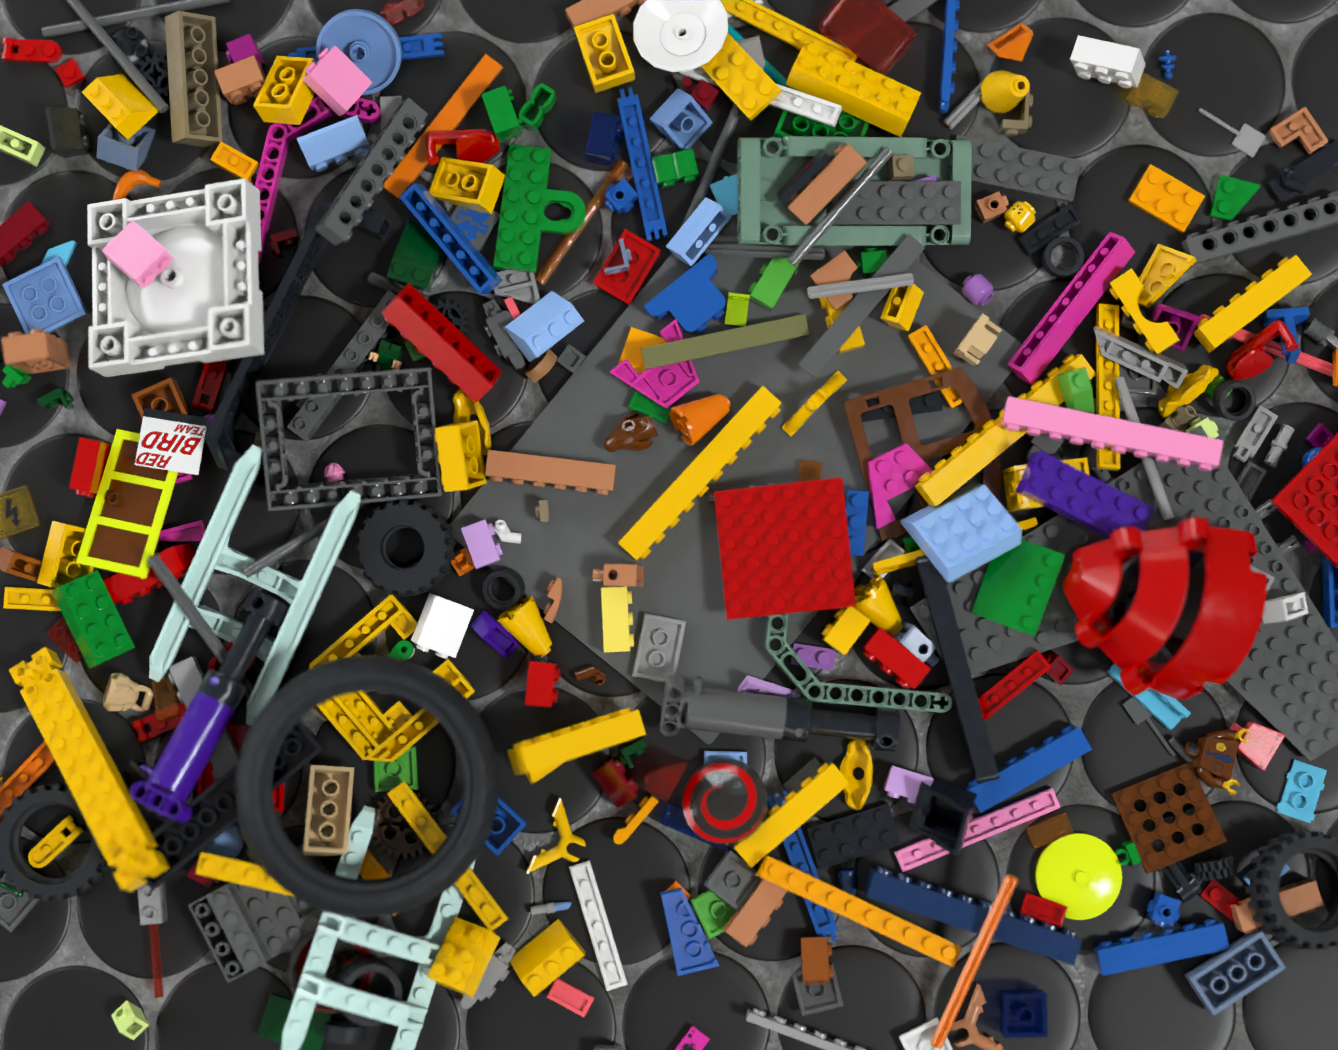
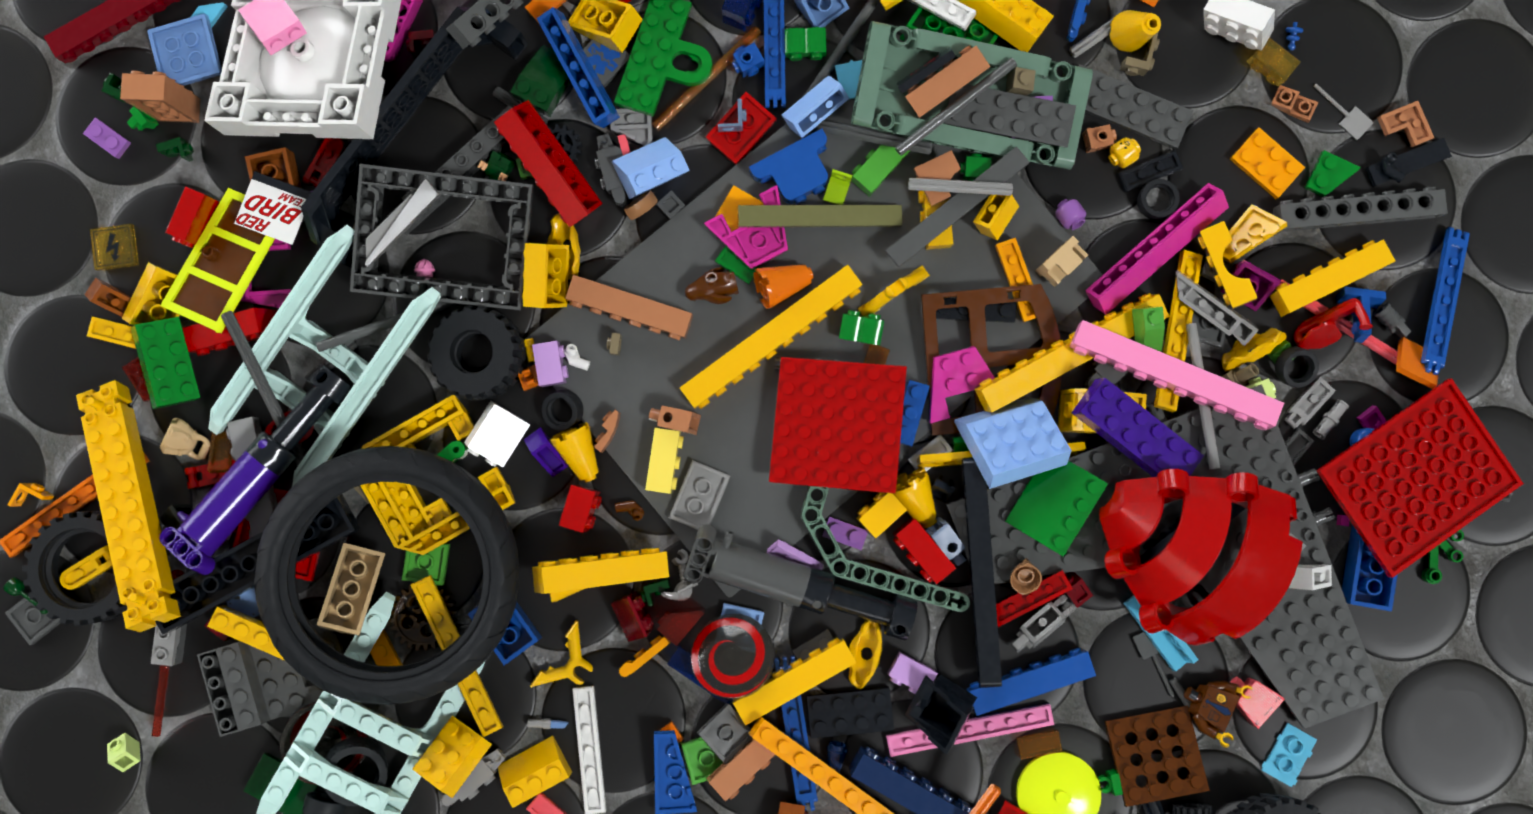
camera: 15 degrees right, 0 degrees up
(307, 431) = (400, 221): none -> light grey wedge
(456, 529) = (529, 349): none -> yellow piece
(662, 744) = (684, 588): none -> light grey piece
(789, 446) = (861, 328): none -> green brick
(1002, 665) = (1025, 577): none -> medium nougat hat
(1029, 709) = (1042, 624): none -> light grey hinge
(1181, 133) = (1293, 104): none -> nougat slope

